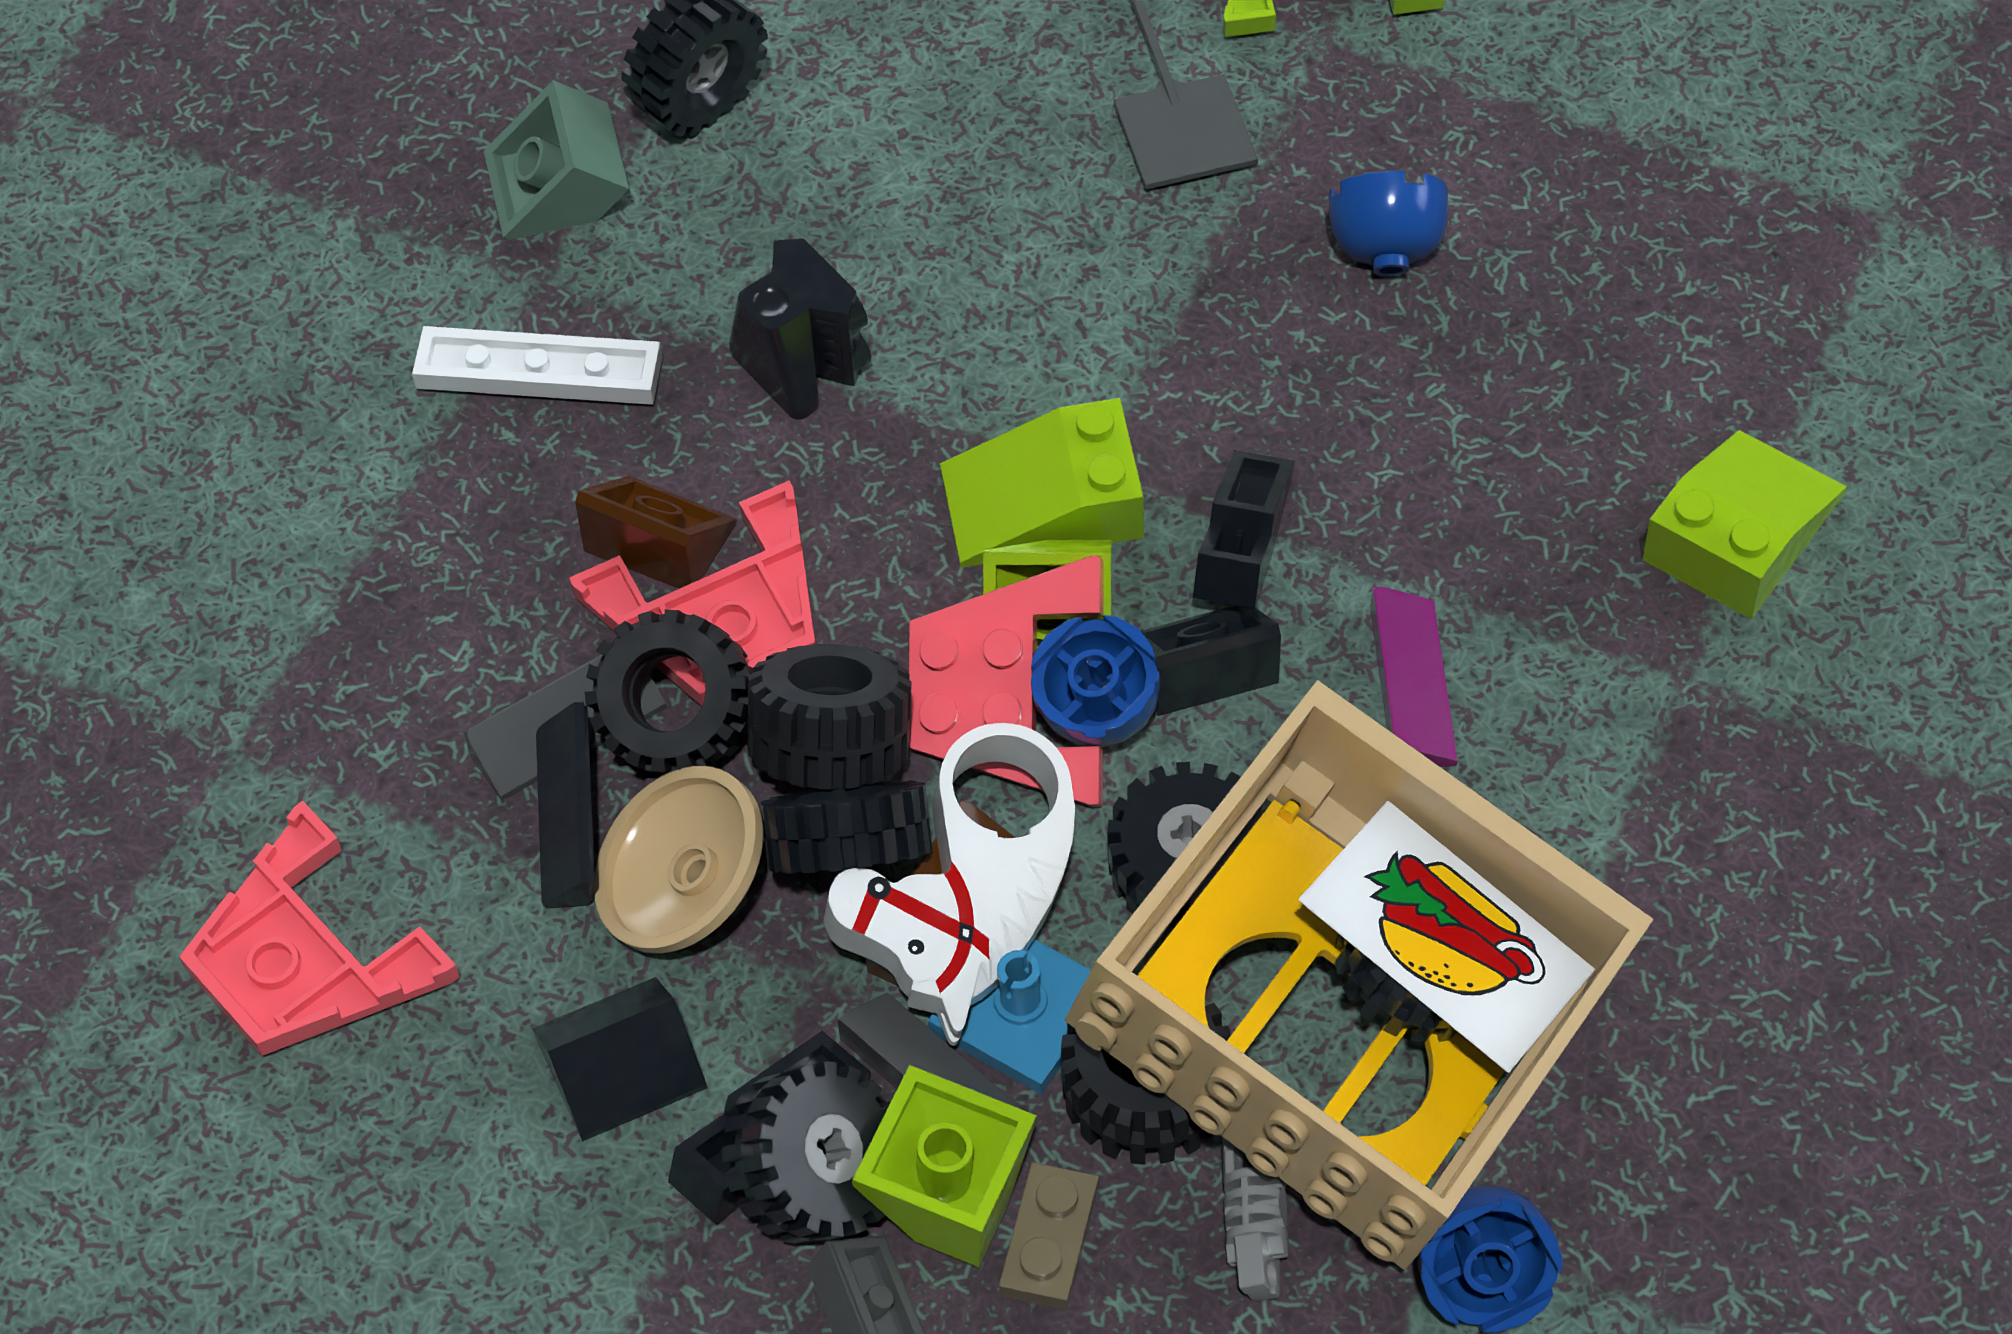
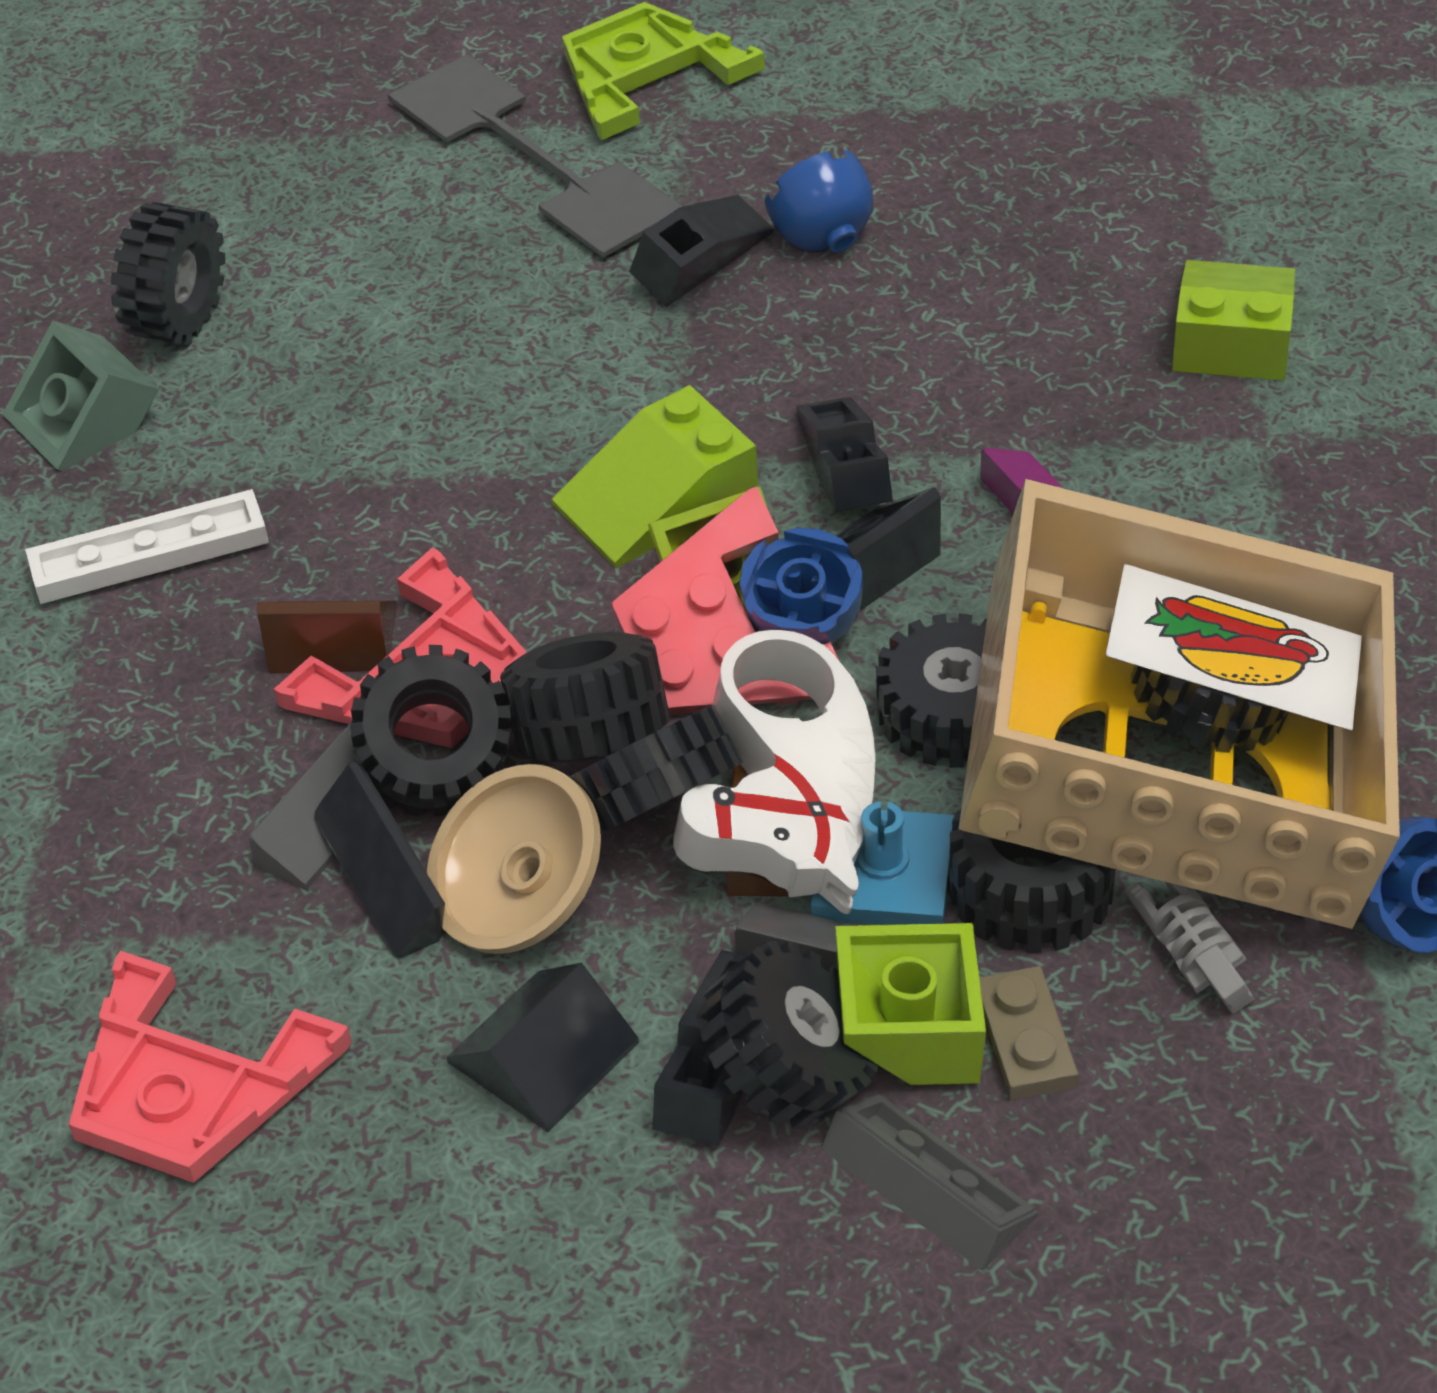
camera: 25 degrees left, 10 degrees down
(799, 326) = (377, 432): black piece -> none
(1240, 216) = (695, 245): none -> black slope

